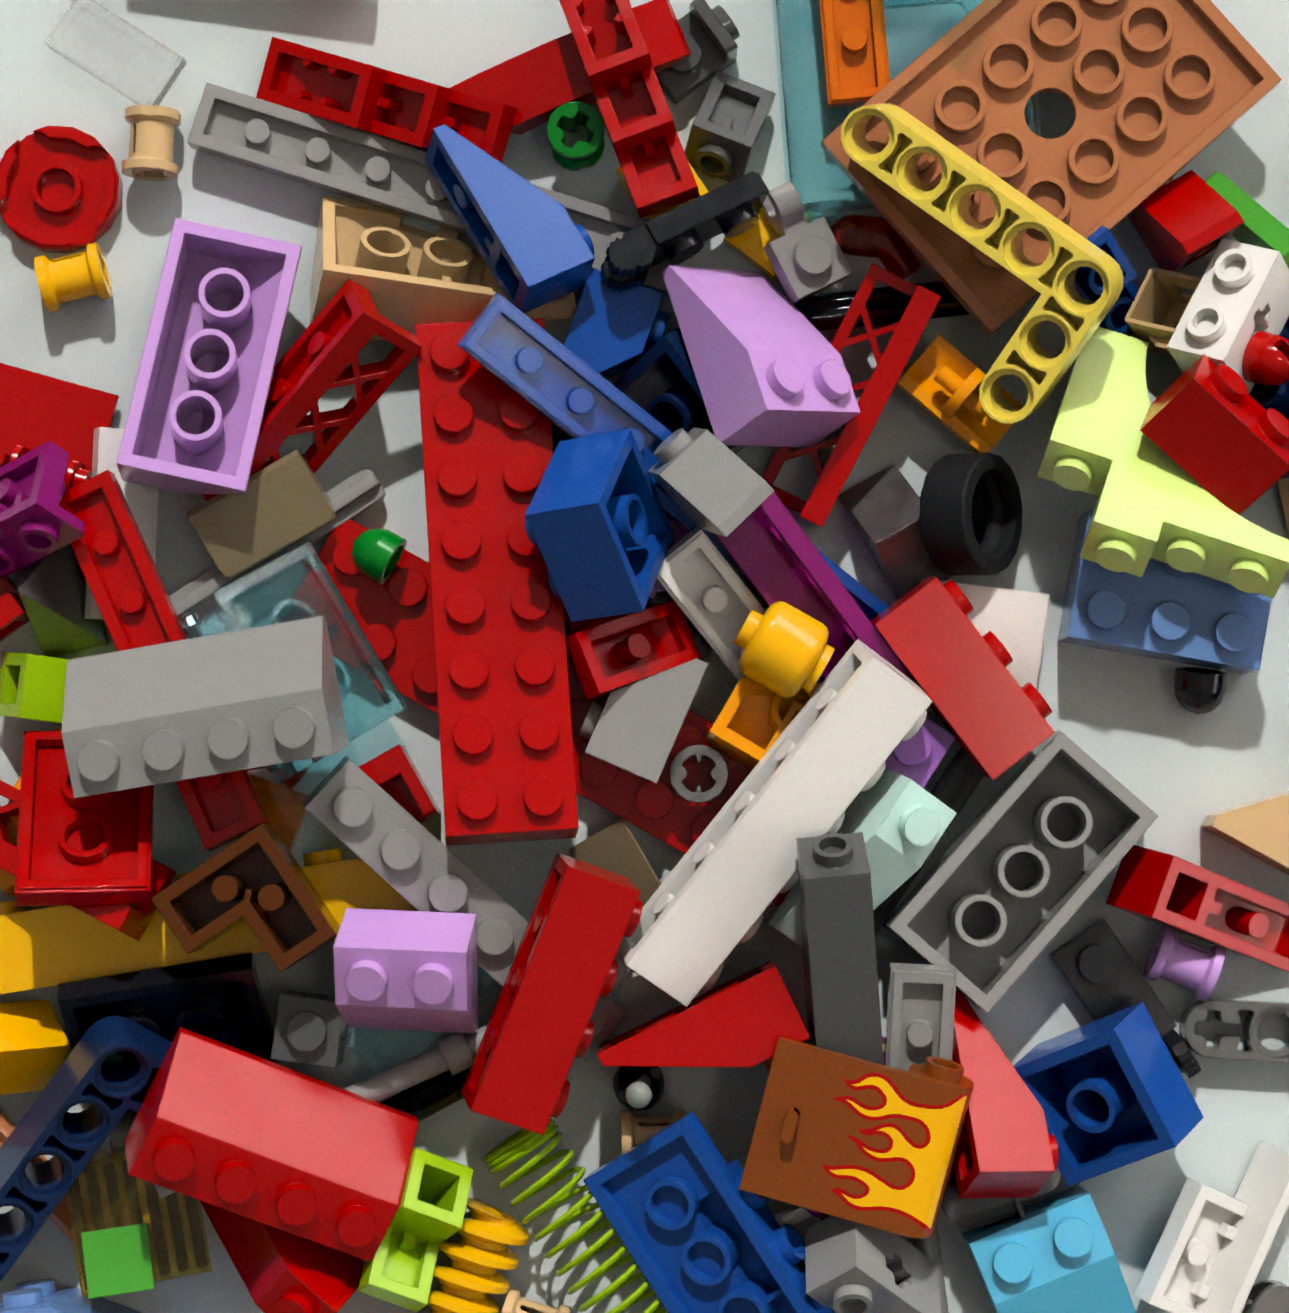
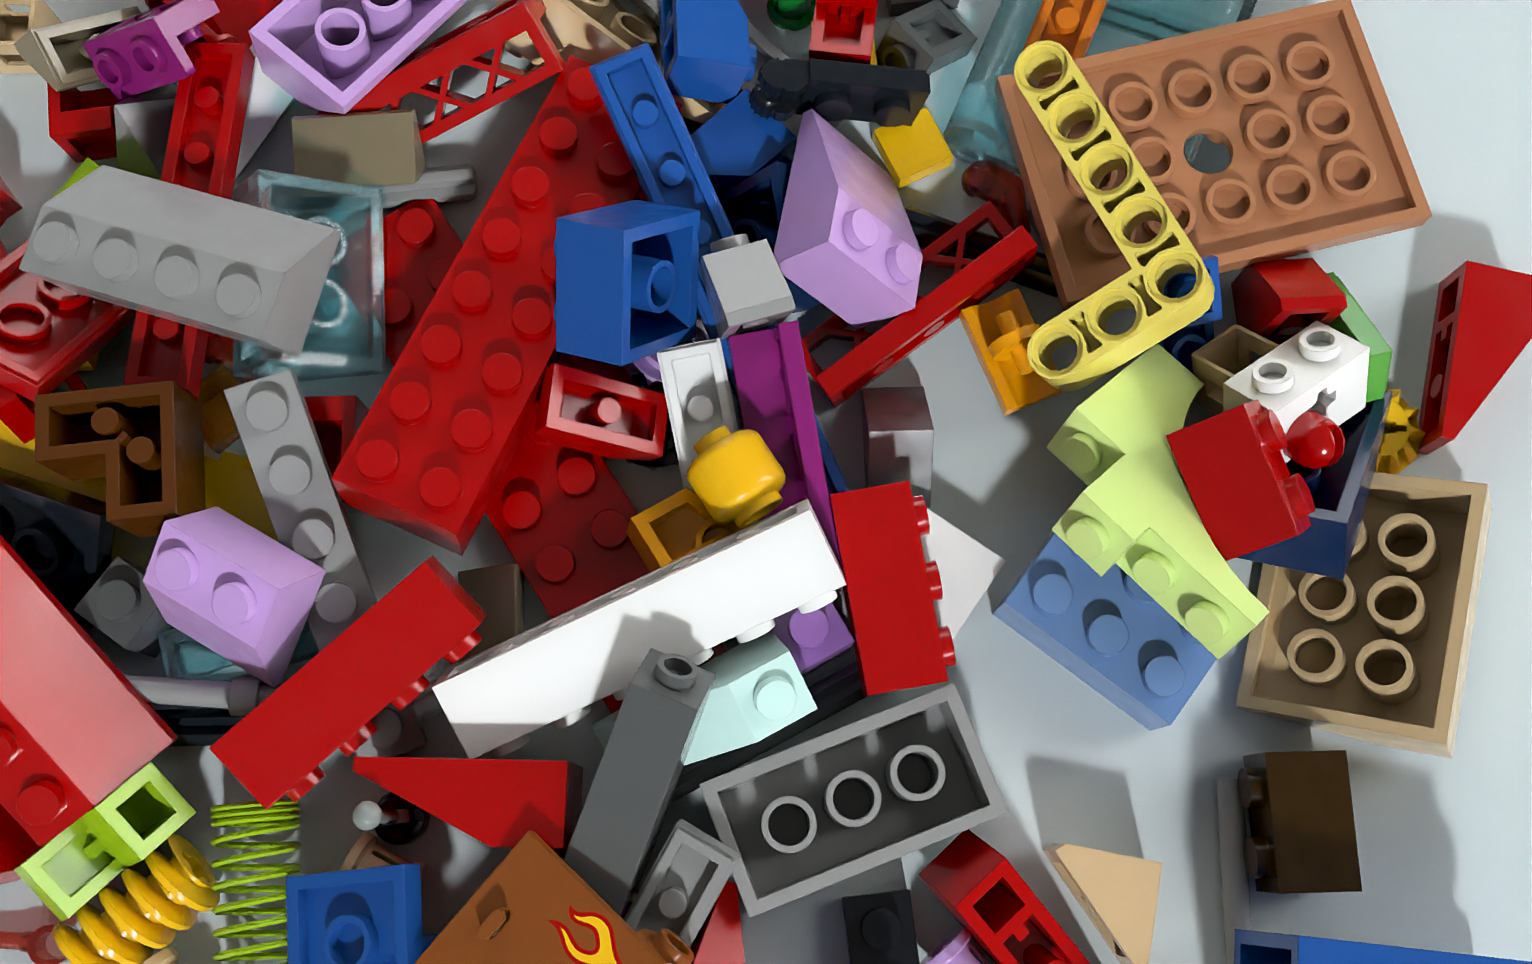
camera: 25 degrees right, 10 degrees down
(378, 553) = (434, 229): green hinge -> none
(643, 720) = (582, 481): light grey slope -> none
(718, 773) = (586, 549): flat silver bush -> none
(804, 253) = (932, 168): light grey plate -> none
(971, 514) = (944, 443): black tyre -> none
(1199, 688) = (1102, 721): black hinge -> none

